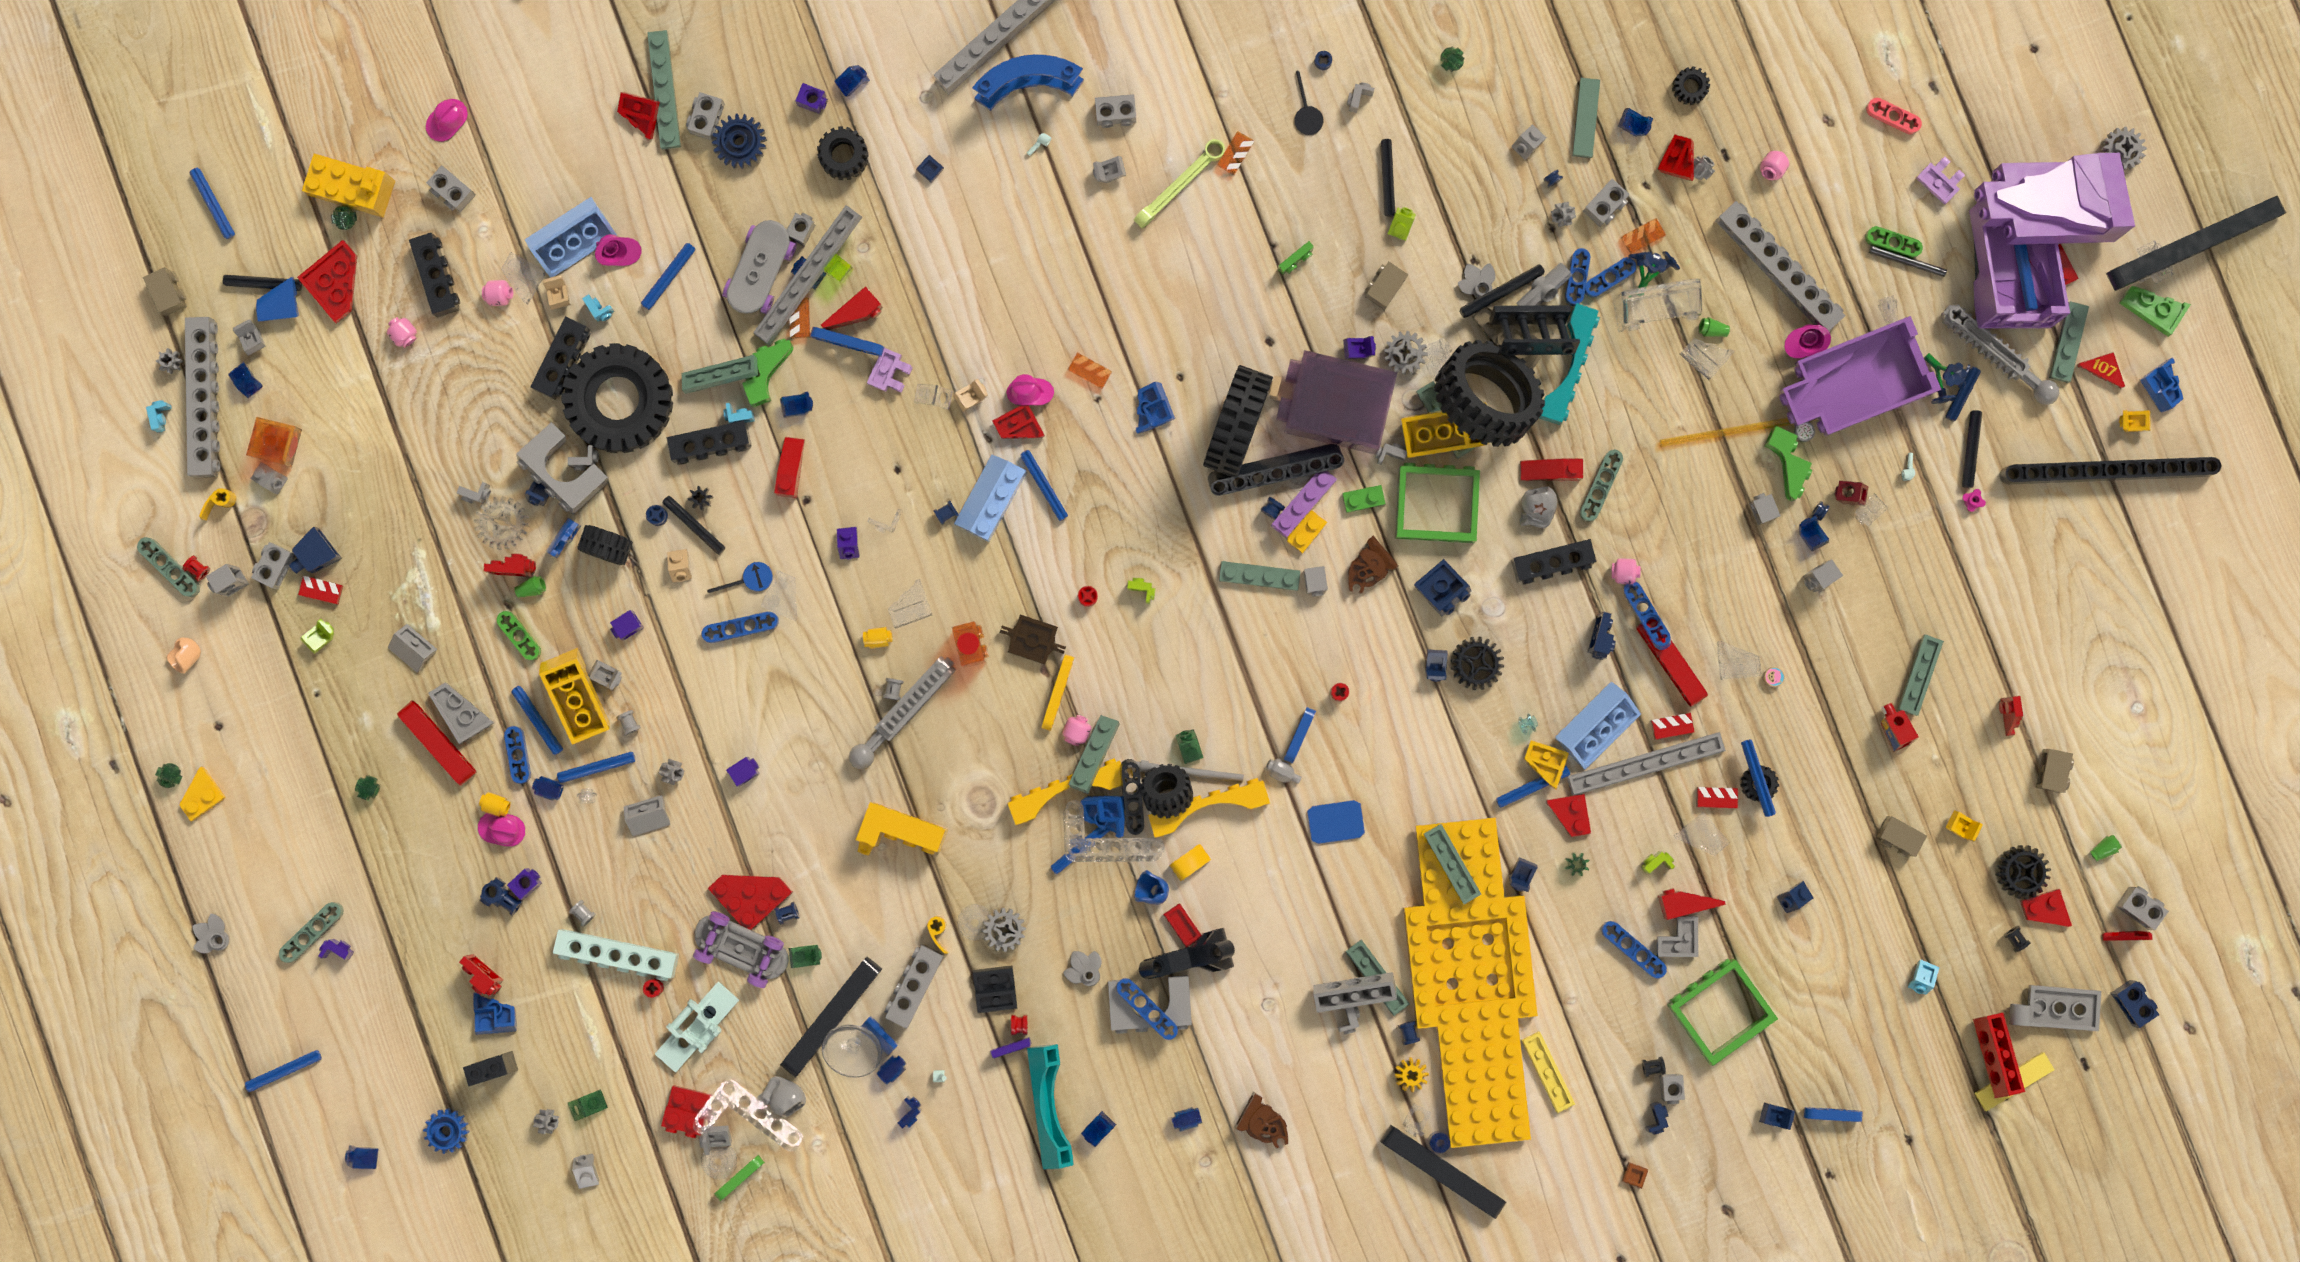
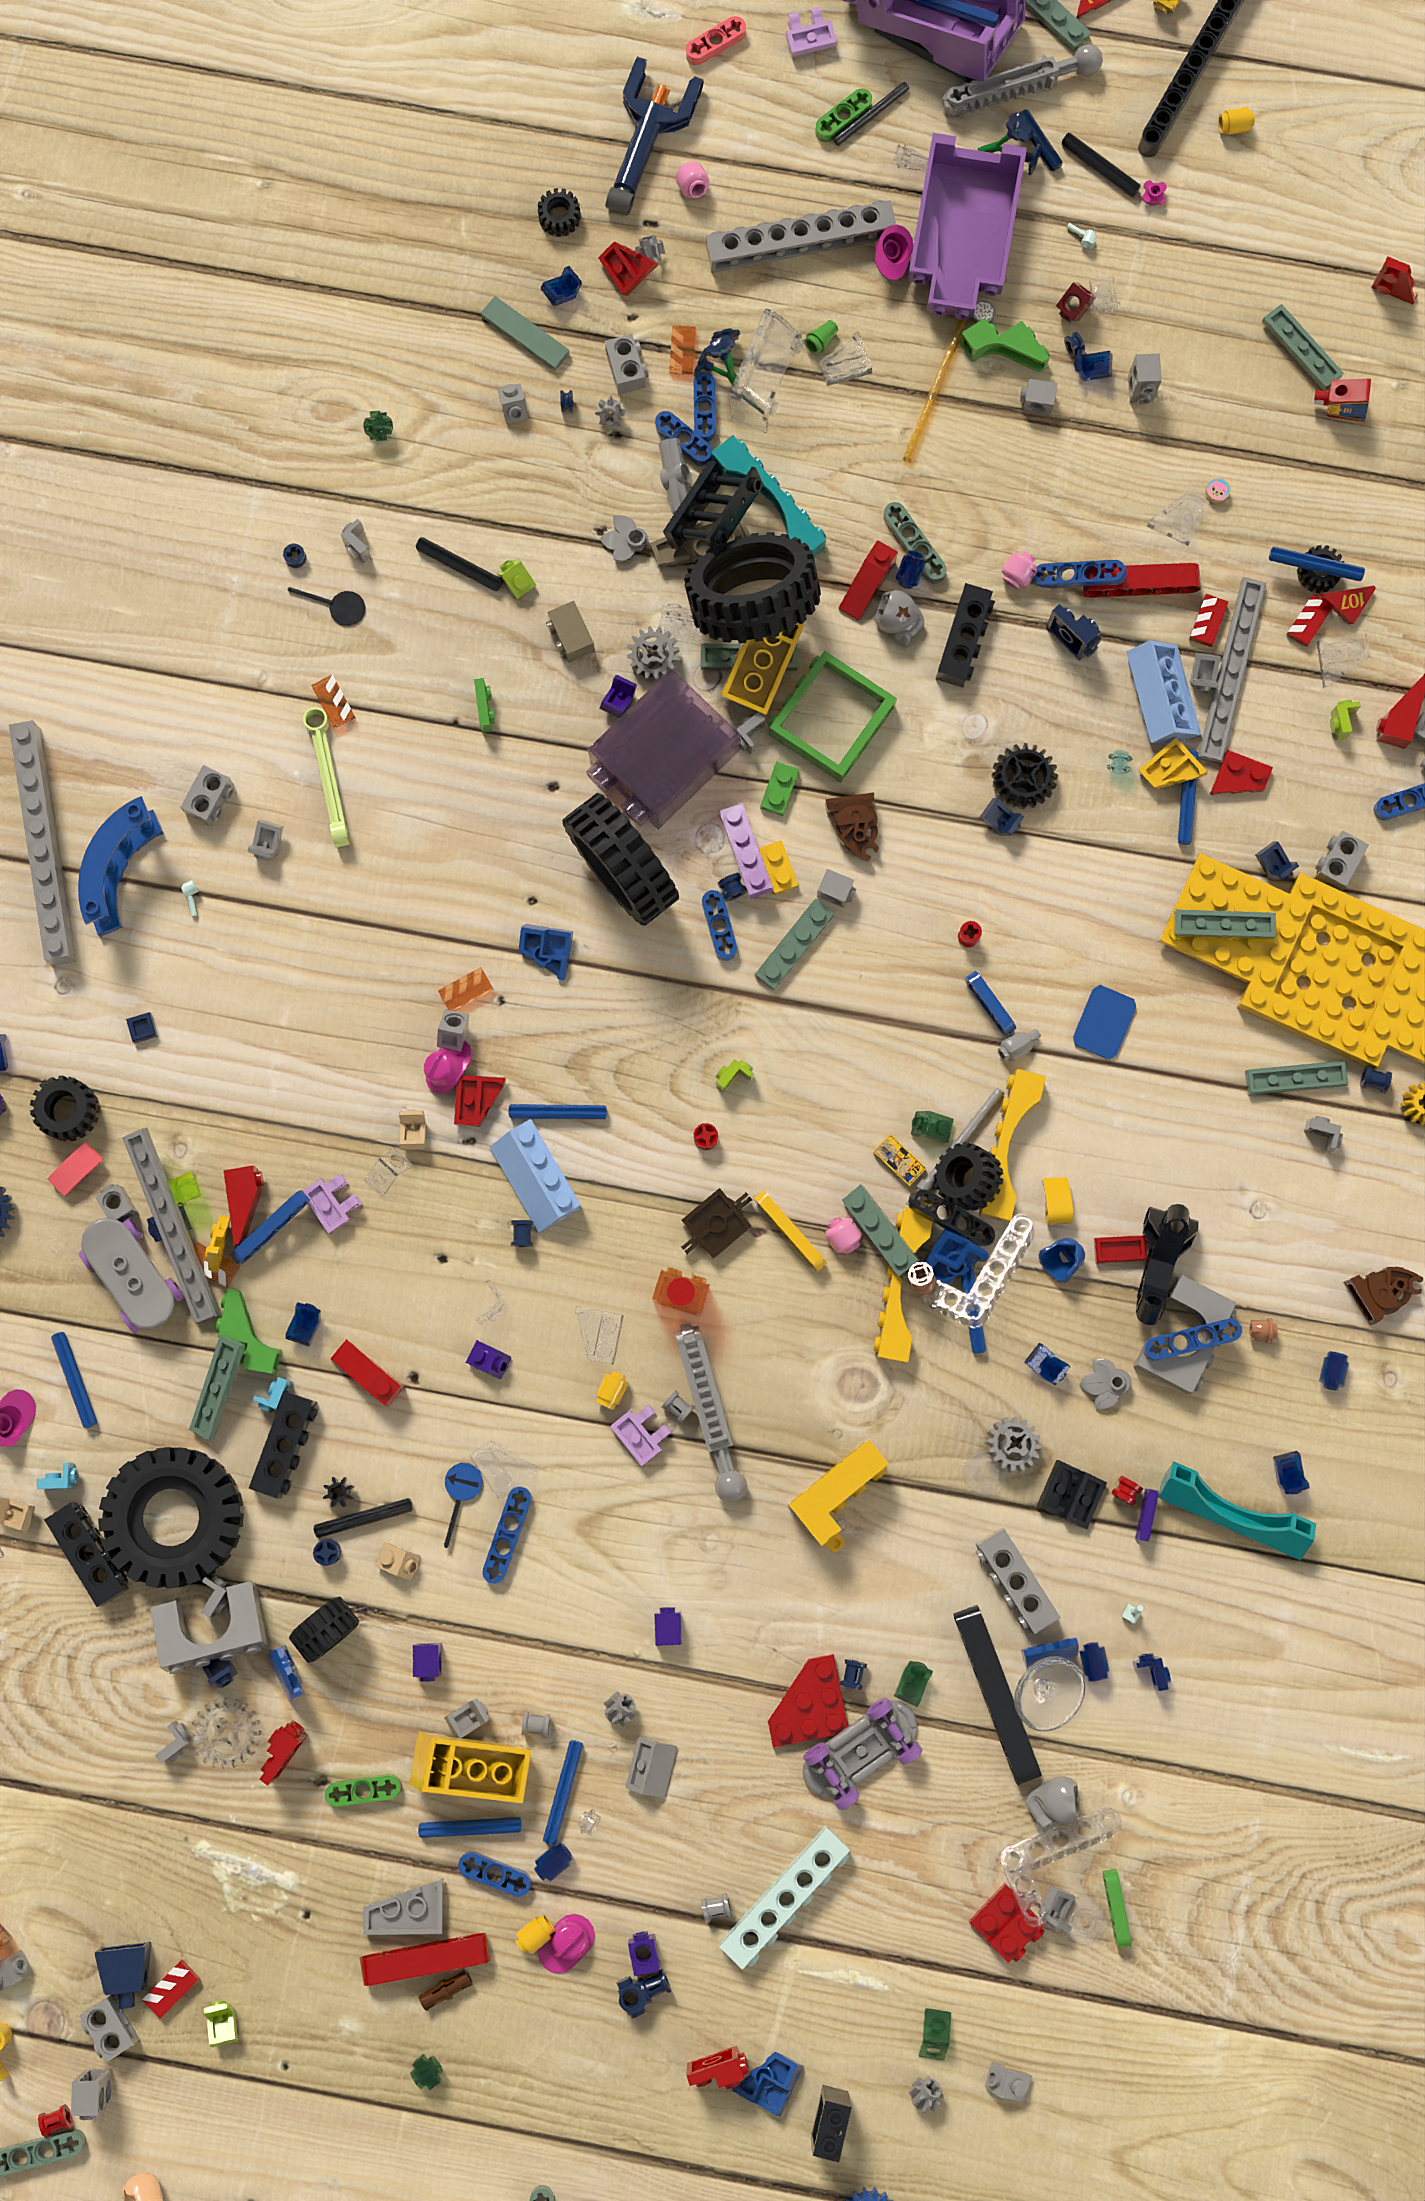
camera: 55 degrees left, 5 degrees down
(411, 647) = (300, 1922): light grey panel -> none
(425, 768) = (445, 1990): none -> reddish brown pin
(531, 587) = (318, 1743): bright green cone -> none
(657, 983) = (849, 1885): red bush -> none
(702, 1031) = (928, 1850): light aqua piece -> none
(807, 186) = (75, 1168): none -> coral slope
(820, 311) = (217, 1245): none -> yellow wing
(856, 672) = (636, 1437): none -> lavender plate
(933, 932) = (973, 1520): yellow panel -> none
(1055, 379) = (452, 1030): none -> light grey brick
(1072, 921) = (1047, 1364): none -> clear blue bracket
(1077, 805) = (924, 1283): none -> nougat wheel
(1152, 738) = (899, 1160): none -> tile
(1185, 1054) = (1263, 1330): none -> nougat hose
(1227, 523) = (718, 943): none -> blue beam
(1285, 472) = (697, 843): black beam -> none
(1355, 992) = (1302, 1107): light grey brick -> none
(1443, 588) = (924, 762): dark blue plate -> none
(1501, 291) = (651, 519): black axle -> none
(1551, 924) = (1344, 863): none -> light grey brick
(1571, 866) = (1293, 794): clear green gear -> none
(1578, 494) = (910, 569): none -> clear blue brick
(1631, 745) = (1205, 671): none -> light grey bracket
(1746, 818) = (1348, 603): none -> red tile
(1800, 108) = (650, 120): none -> dark blue piece
(2066, 527) = (1236, 121): none -> yellow brick

